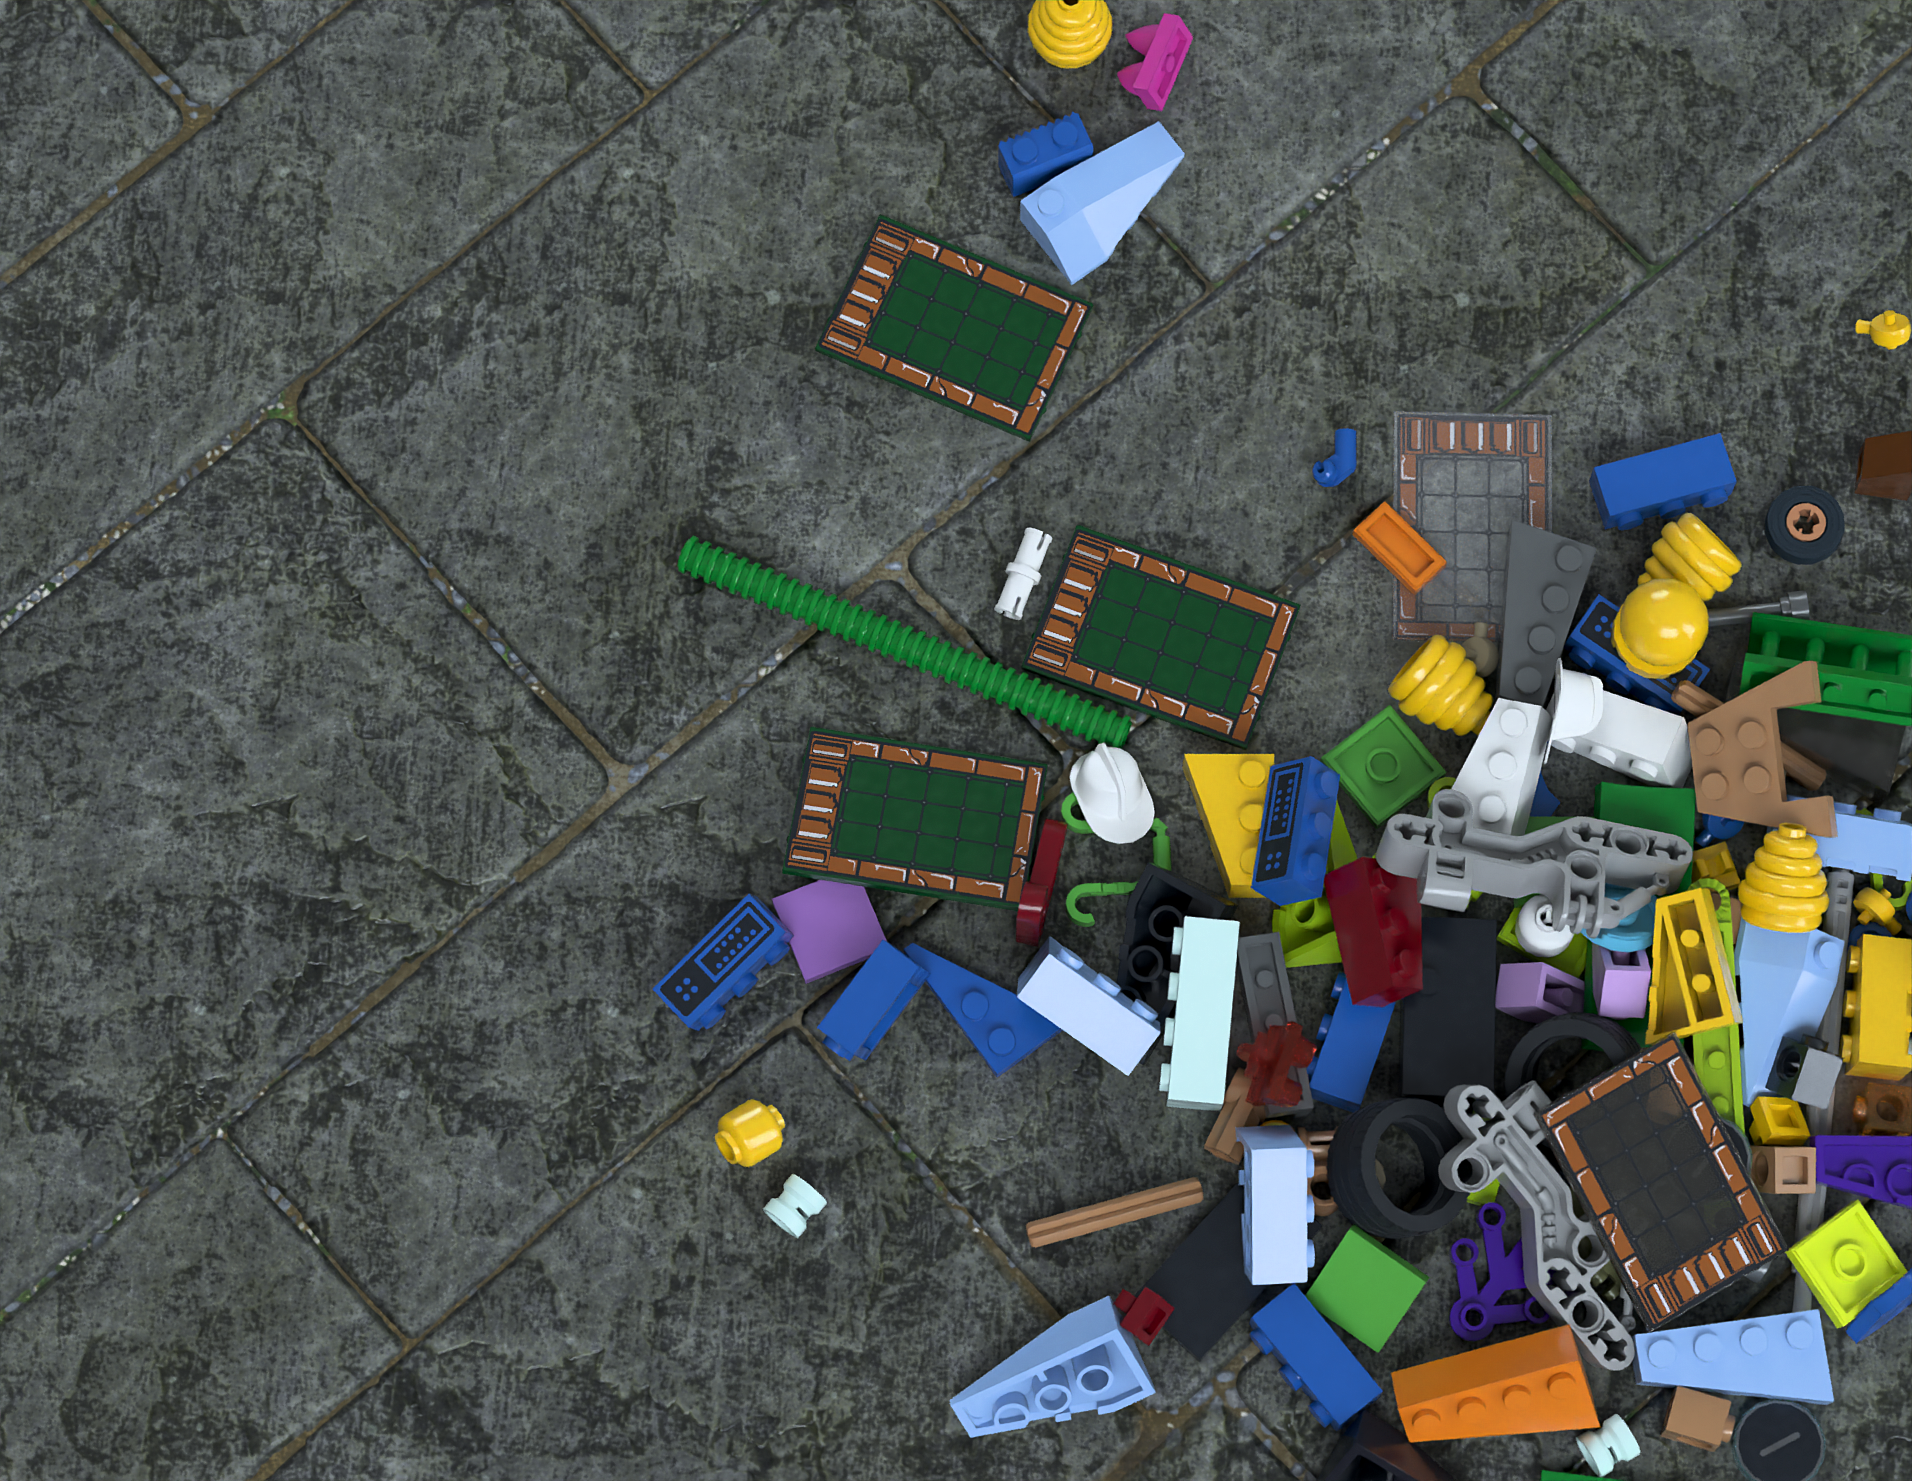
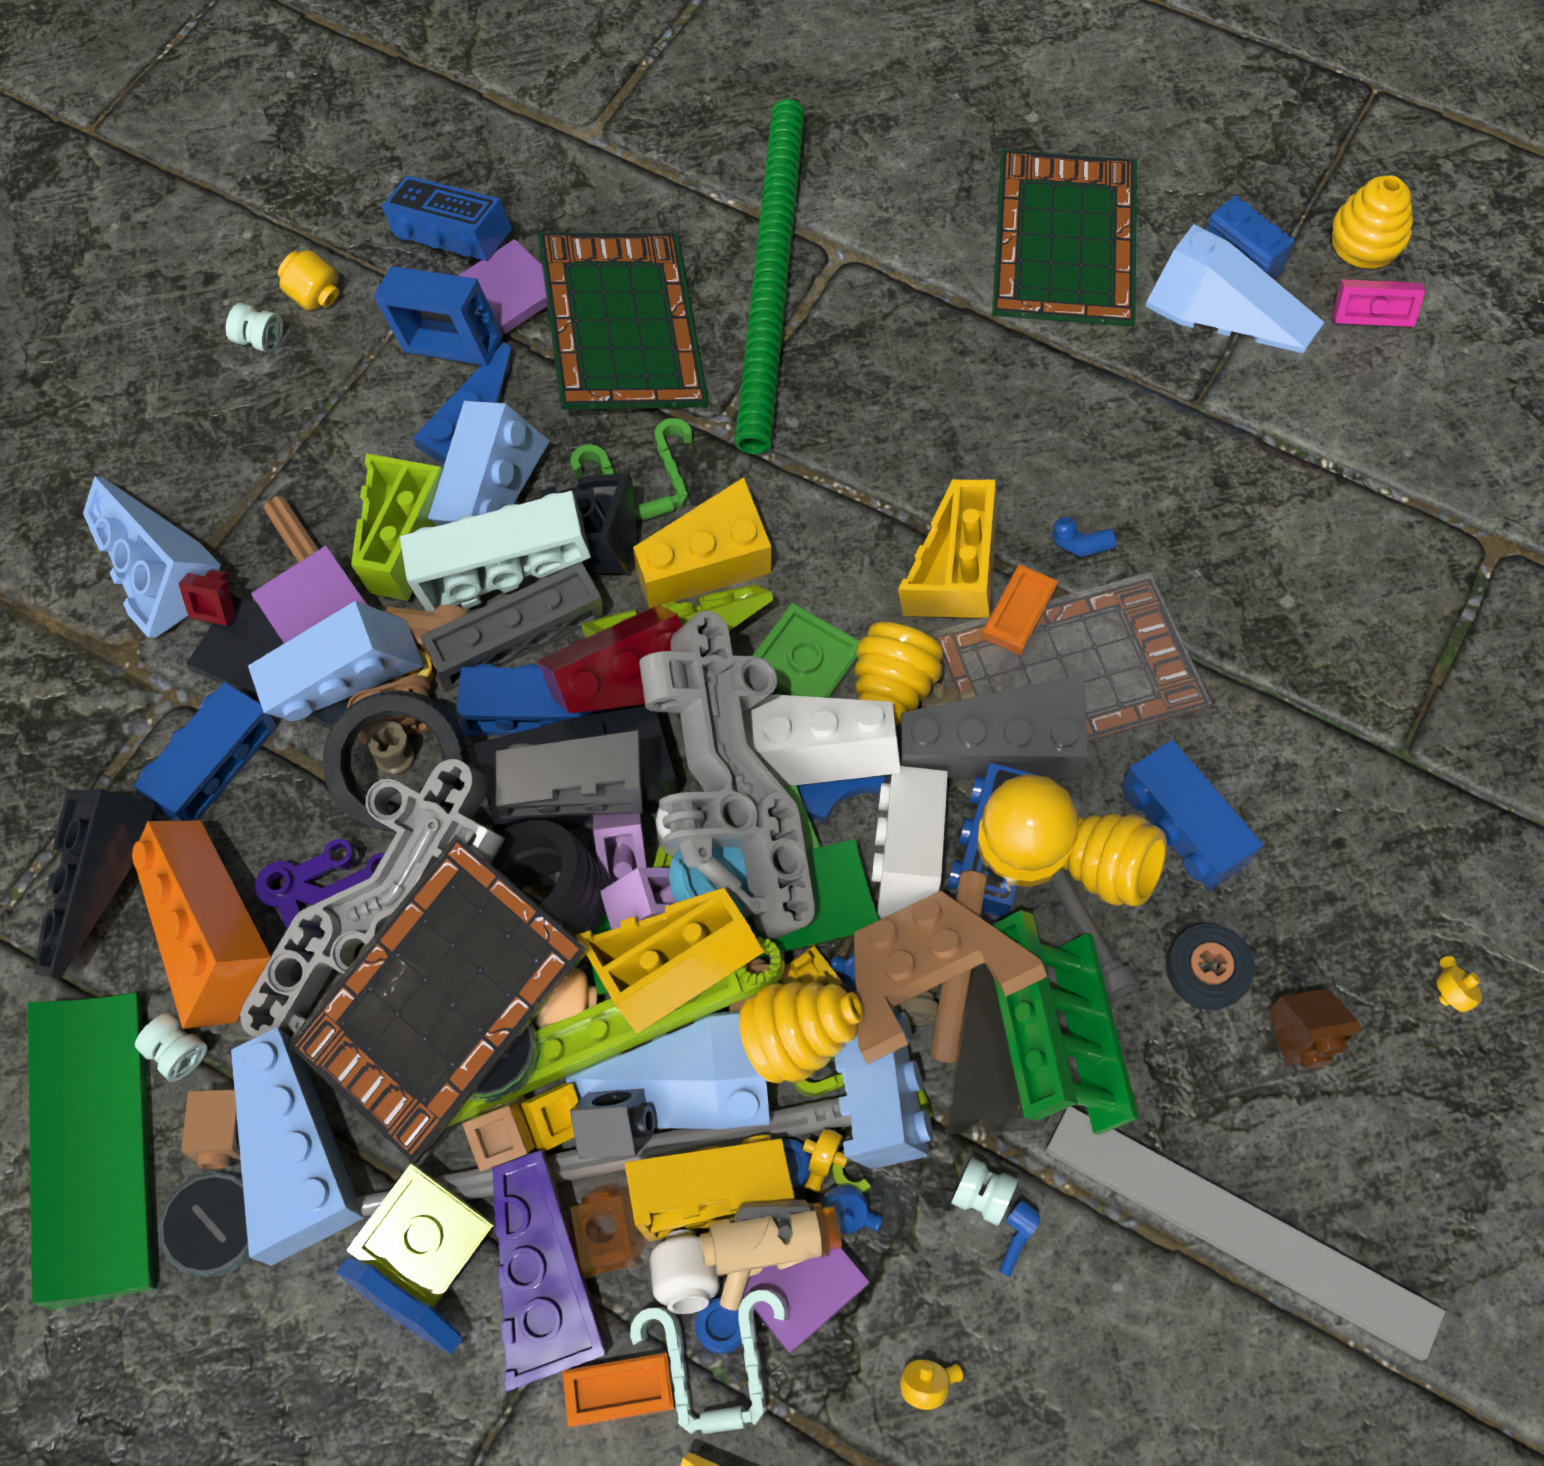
camera: 70 degrees right, 10 degrees down
(1023, 573) = (869, 334): white pin -> none
(1038, 892) = (621, 417): dark red beam -> none
(1111, 1108) = (394, 504): none -> lime wedge
(1112, 794) = (695, 451): white piece -> none
(1161, 637) = (857, 457): piece -> none
(1186, 1214) = (306, 594): none -> medium lavender tile
(1270, 1062) = (439, 620): clear red hips -> none
(1295, 831) = (697, 574): blue brick -> none
(1330, 581) = (957, 559): none -> yellow wedge
(1366, 1288) = (280, 777): bright green tile -> none
(1485, 1005) = (571, 777): none -> dark grey wedge
(1576, 704) = (905, 768): white piece -> none

